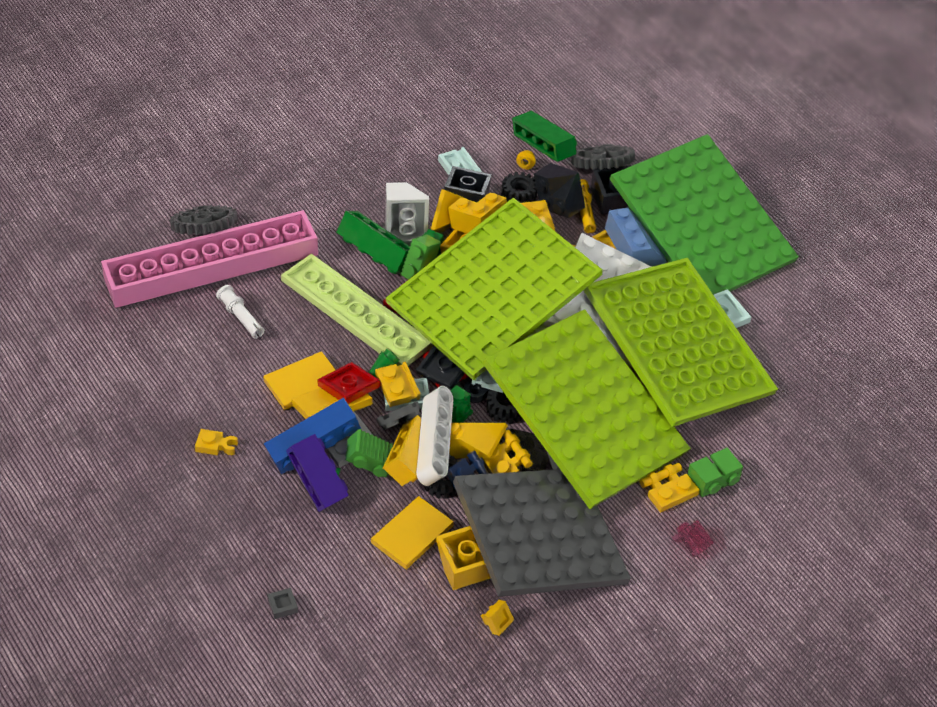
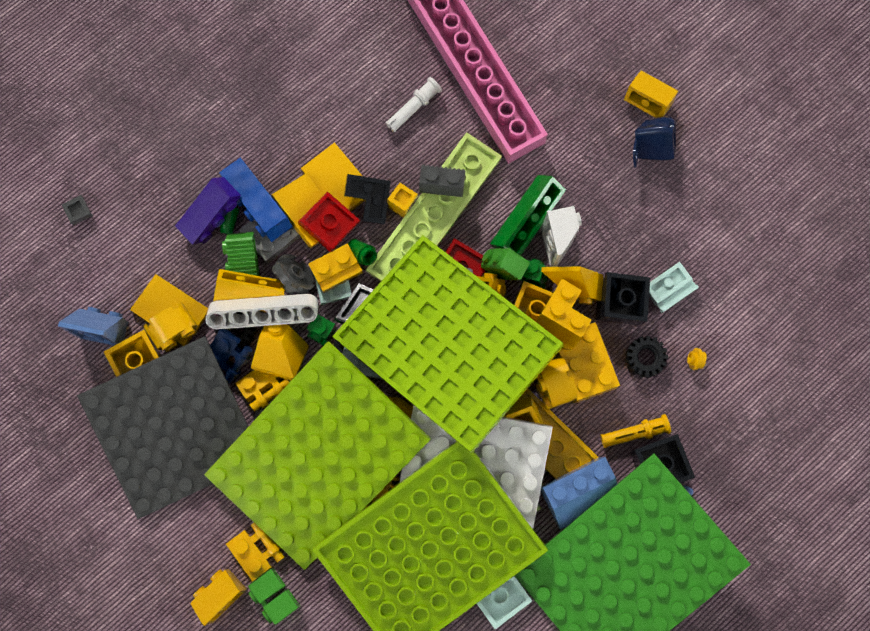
camera: 85 degrees right, 30 degrees up
(203, 219) = (508, 34): dark grey gear -> none
(212, 441) = (251, 115): yellow plate -> none
(280, 147) = (654, 95): none -> yellow brick
(324, 148) = (655, 140): none -> dark blue piece
(327, 346) = (375, 194): none -> black plate
(329, 289) = (442, 181): none -> dark grey brick
(338, 329) = (401, 199): none -> yellow panel
(424, 584) = (96, 326): none -> medium blue slope
(437, 513) = (171, 326): none -> yellow brick
(498, 617) = (72, 399): yellow tile -> none
(544, 136) = (729, 373): green brick -> none
(560, 189) = (637, 398): black slope -> none
(603, 156) = (719, 459): dark grey gear -> none
(693, 537) = (191, 576): clear pink bracket -> none
(715, 509) = (217, 596): none -> yellow slope

